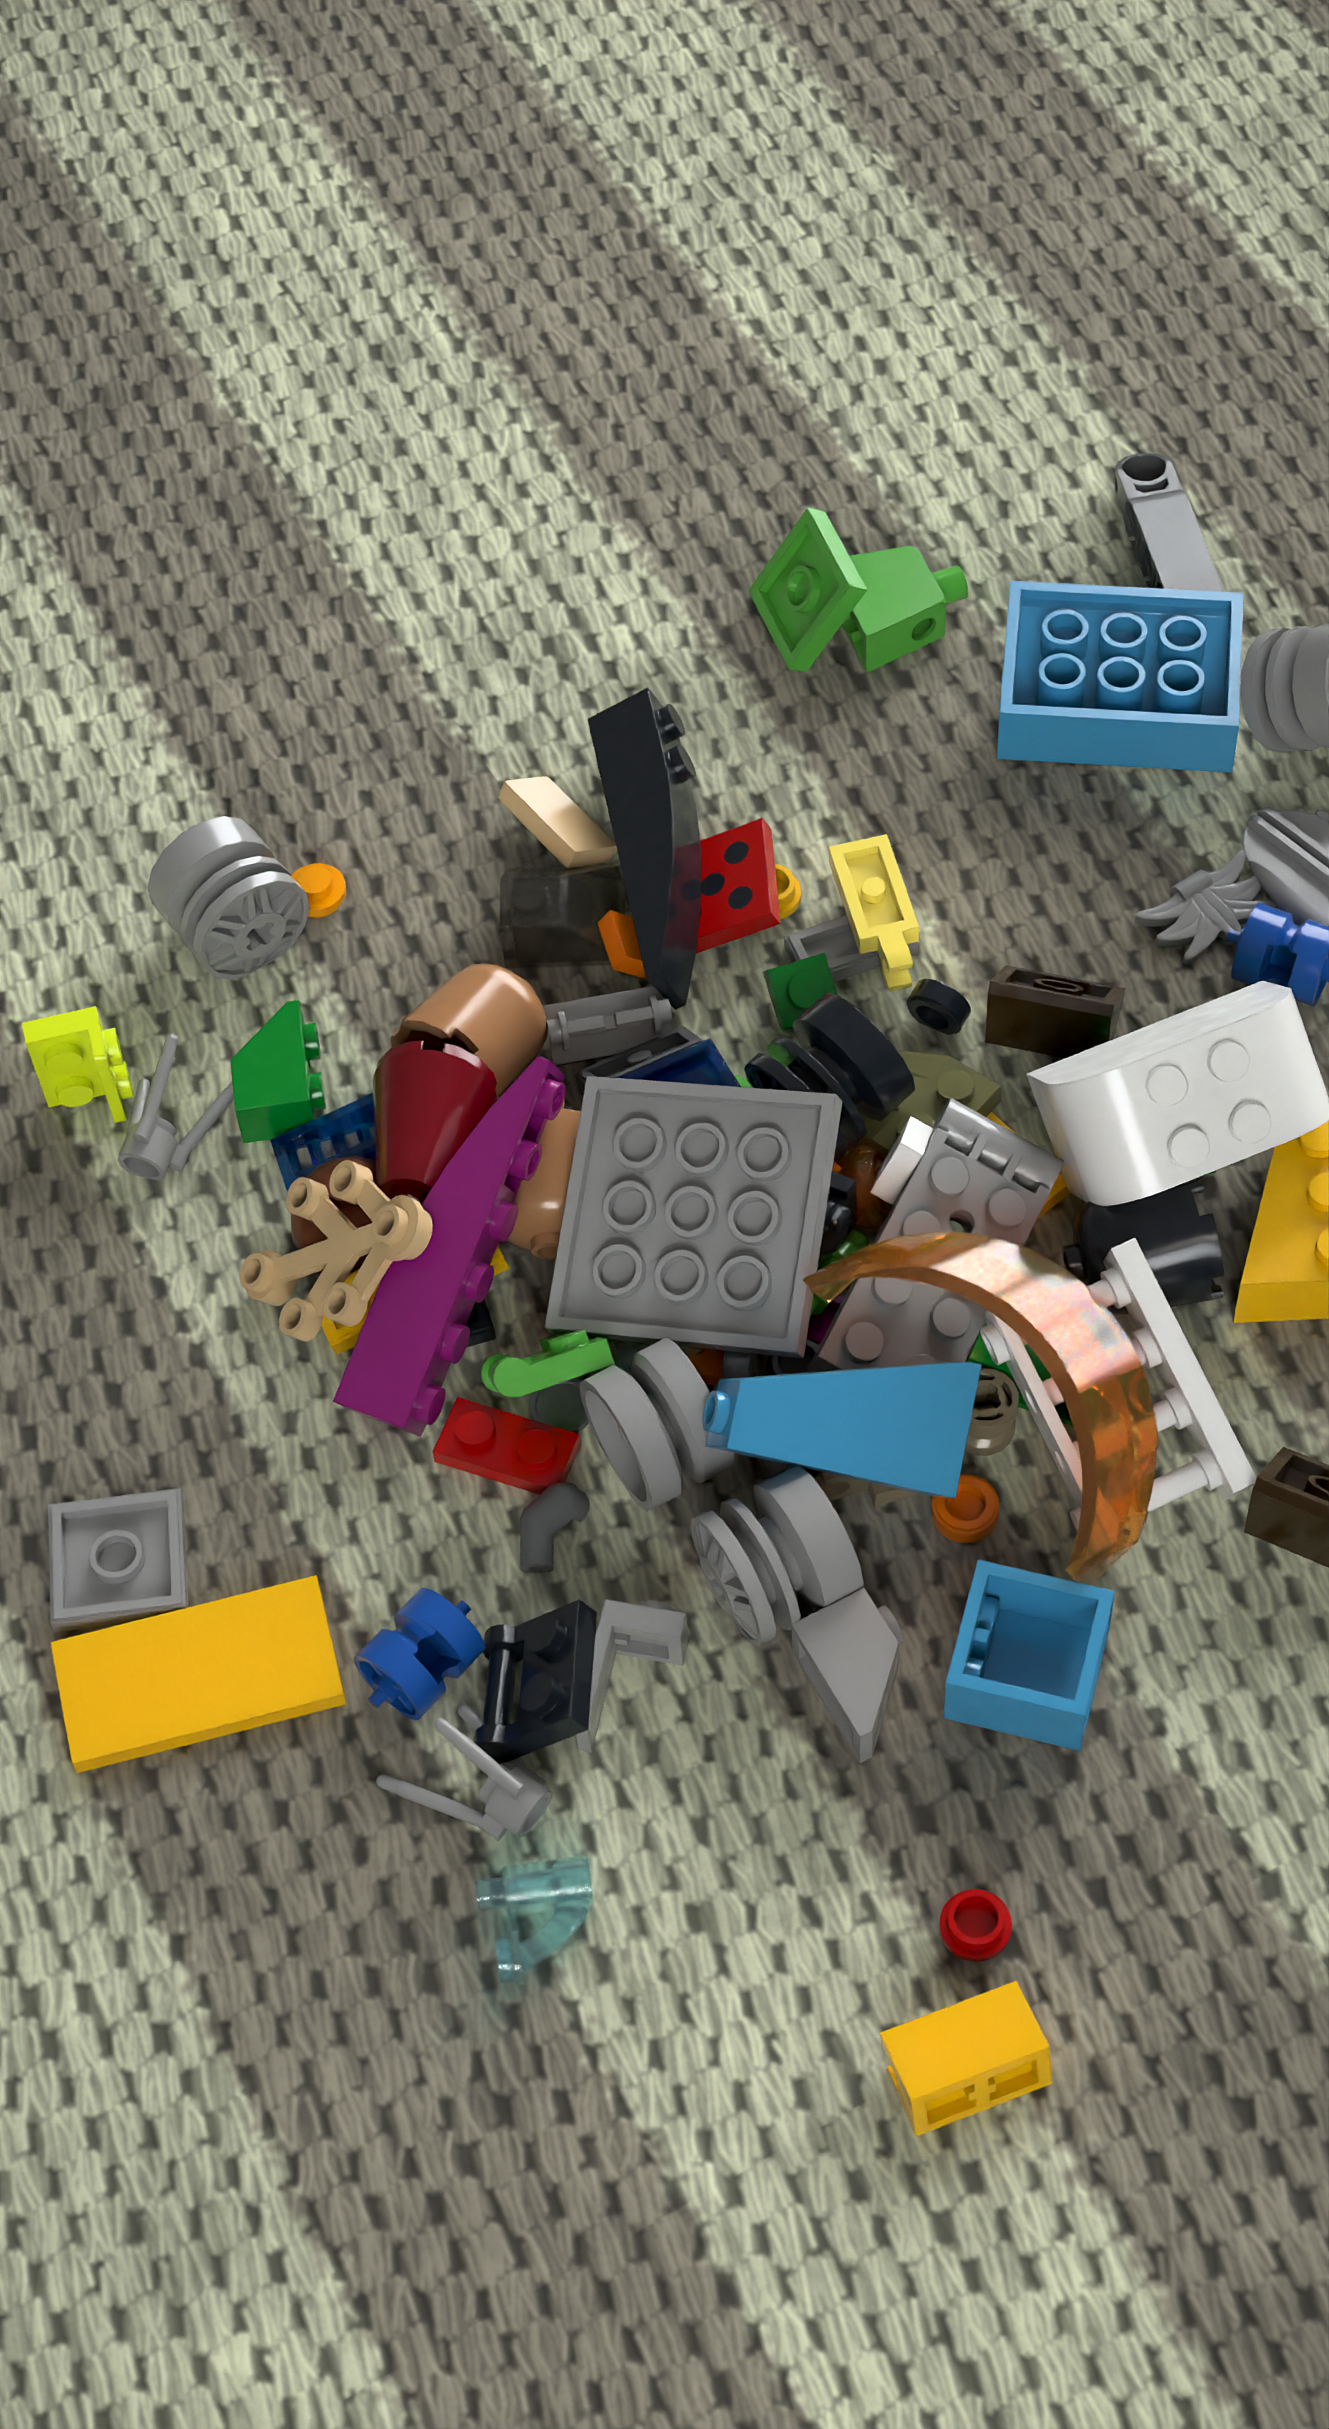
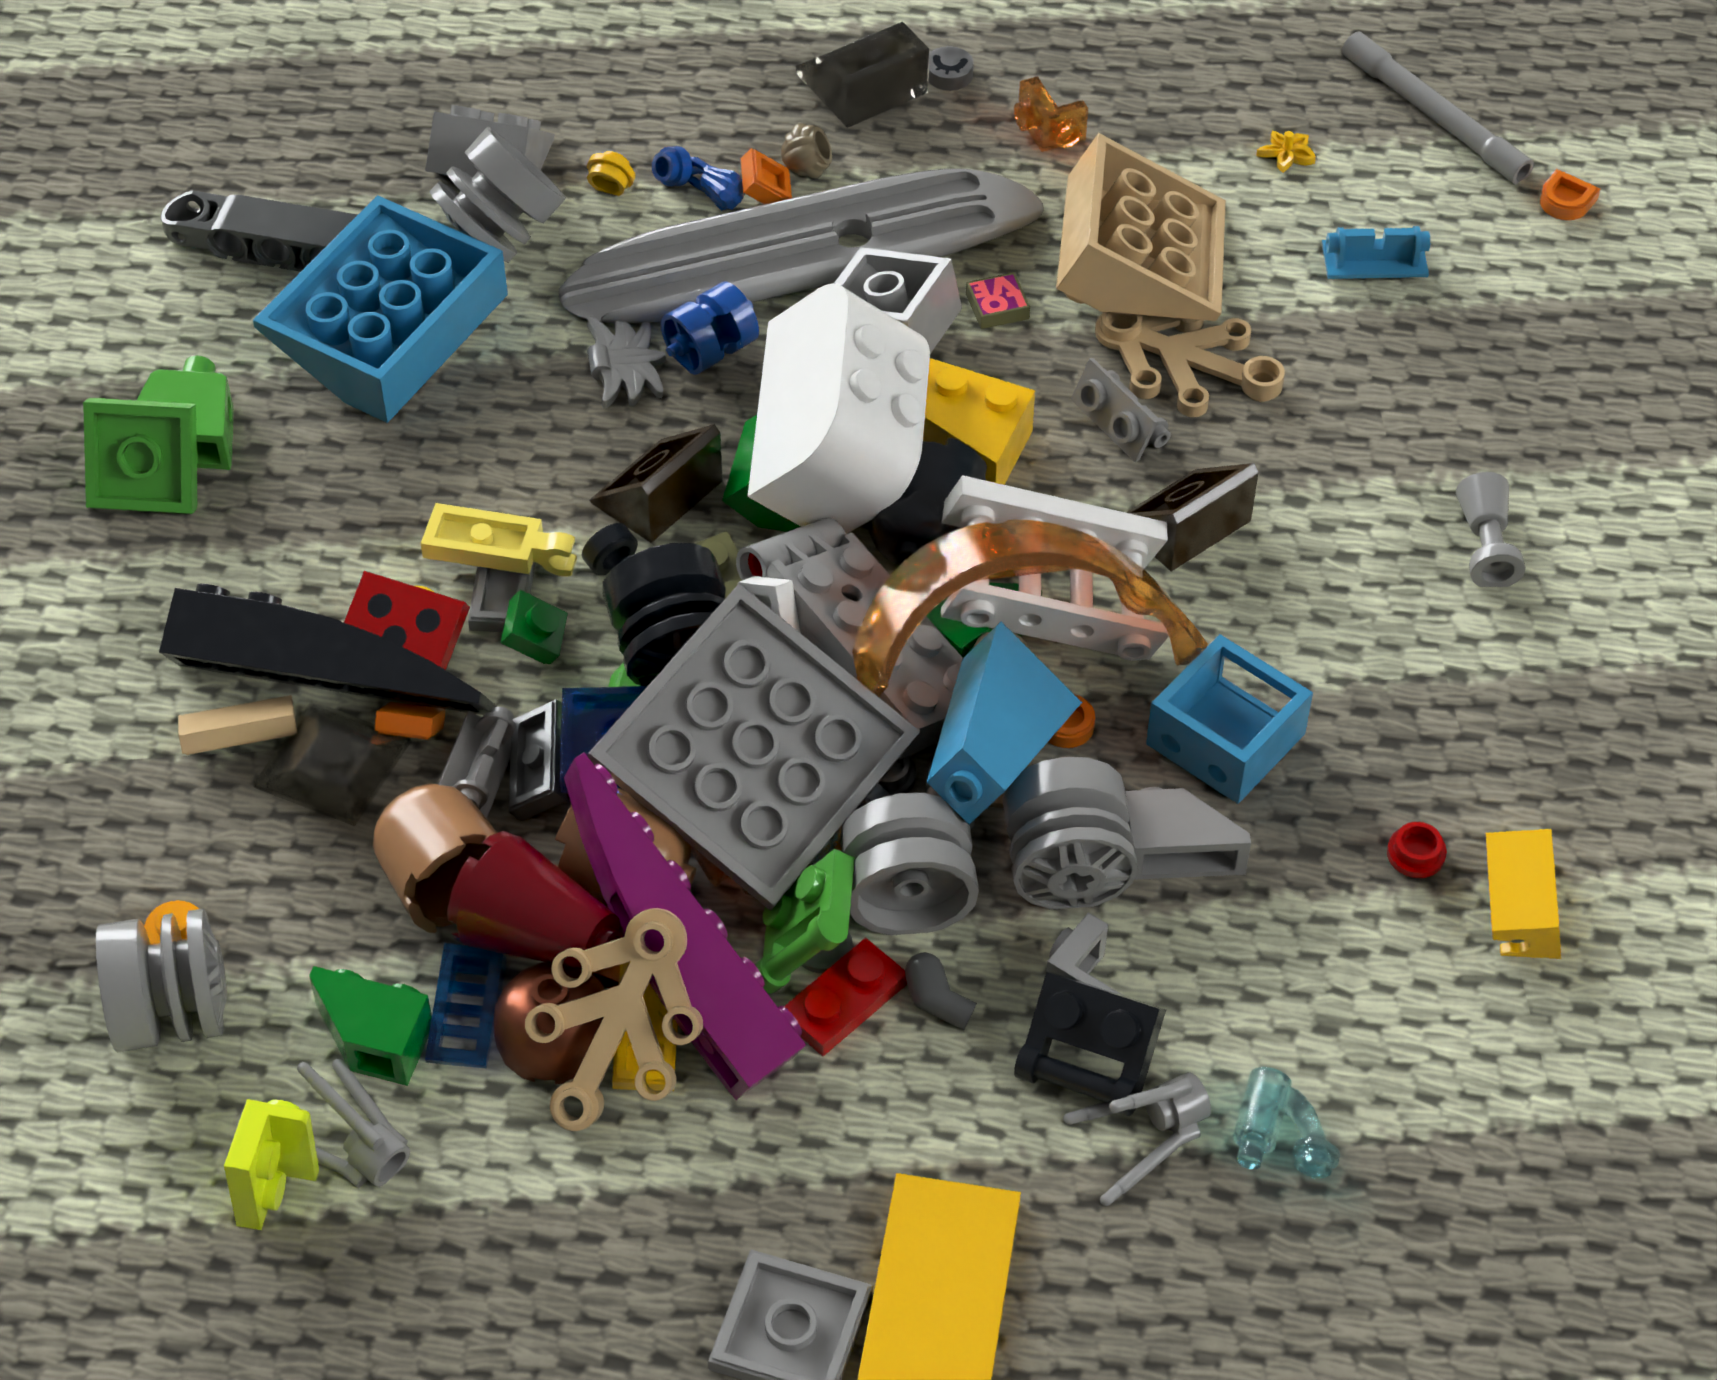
camera: 70 degrees left, 5 degrees down
(411, 1662) = (1014, 1105): blue wheel -> none

